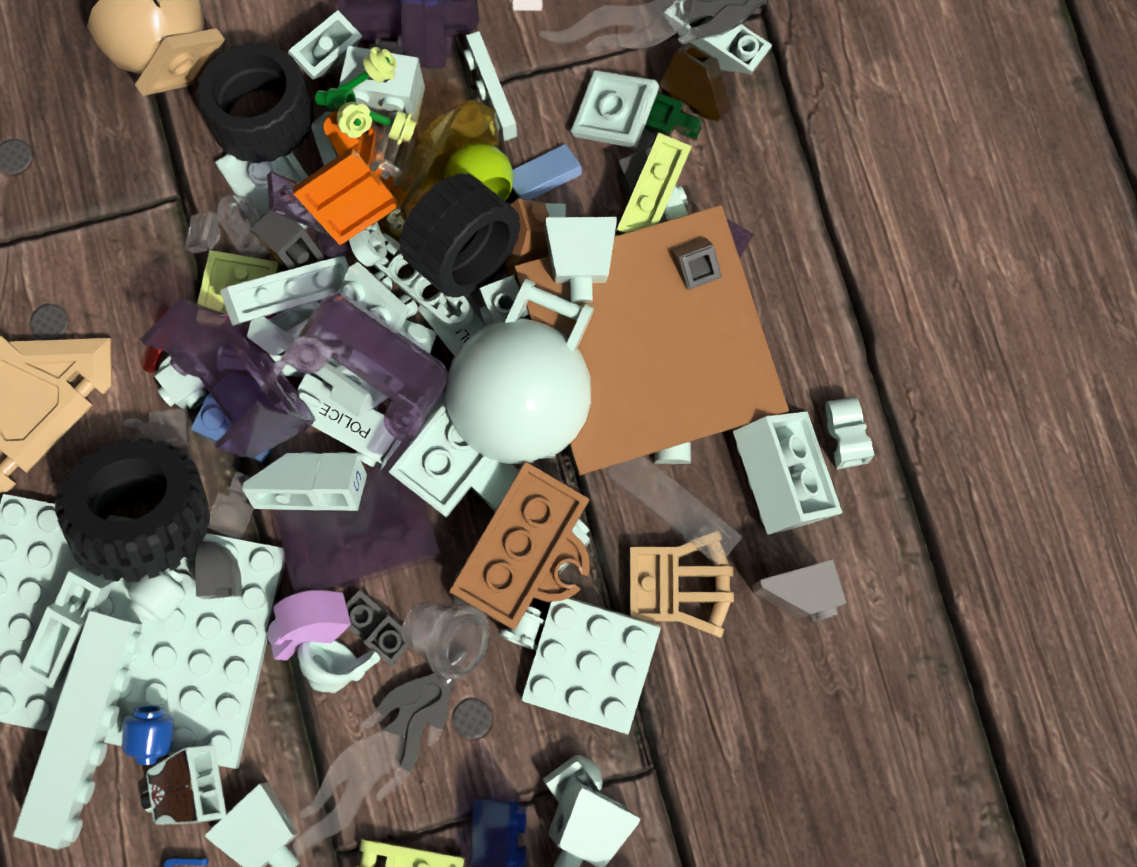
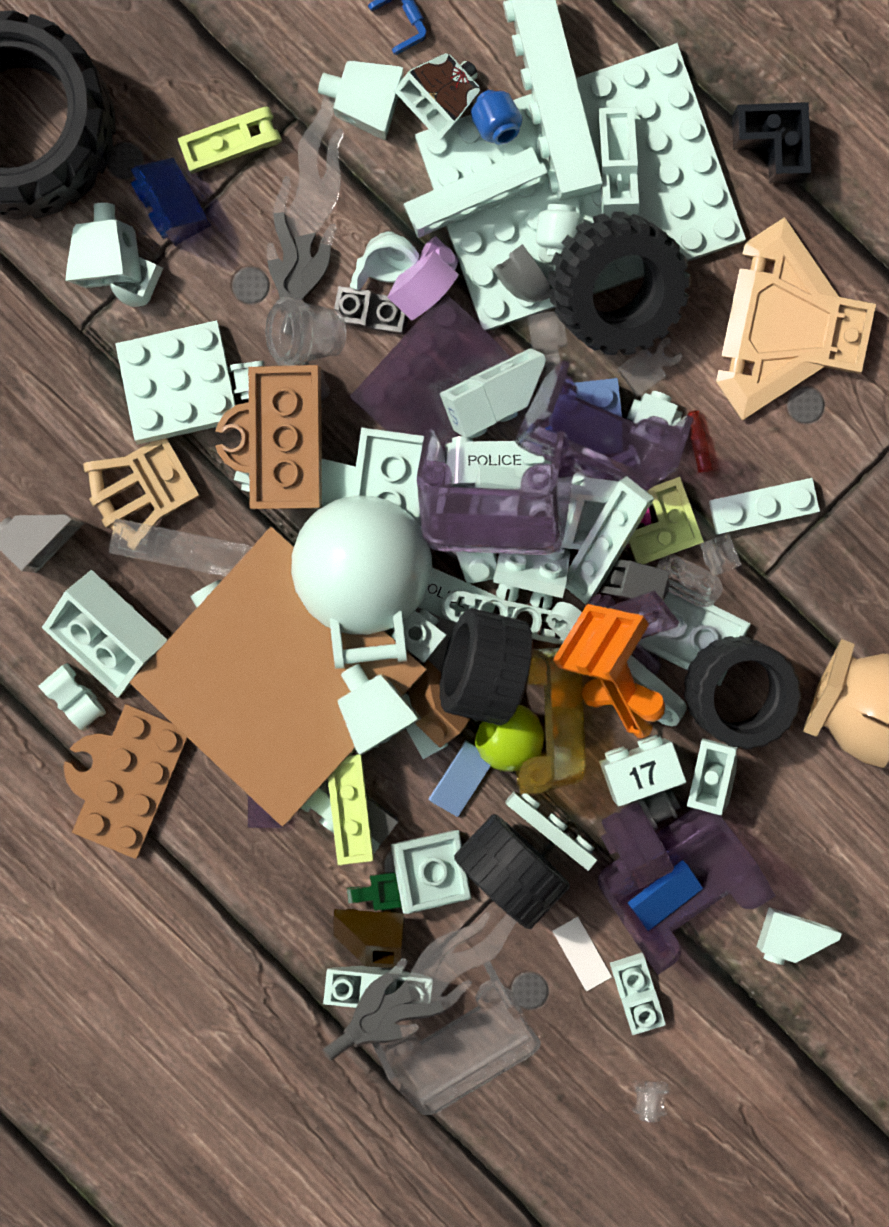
camera: 150 degrees right, 10 degrees up
(140, 254) = (764, 506): none -> light aqua plate
(211, 676) = (475, 192): none -> light aqua fence
(356, 117) = (635, 713): yellowish green plant -> none
(377, 160) = (602, 715): clear tile -> none
(544, 60) = (511, 871): none -> black tyre
(697, 263) = (274, 762): dark grey slope -> none
(839, 336) = (125, 779): none -> medium nougat plate

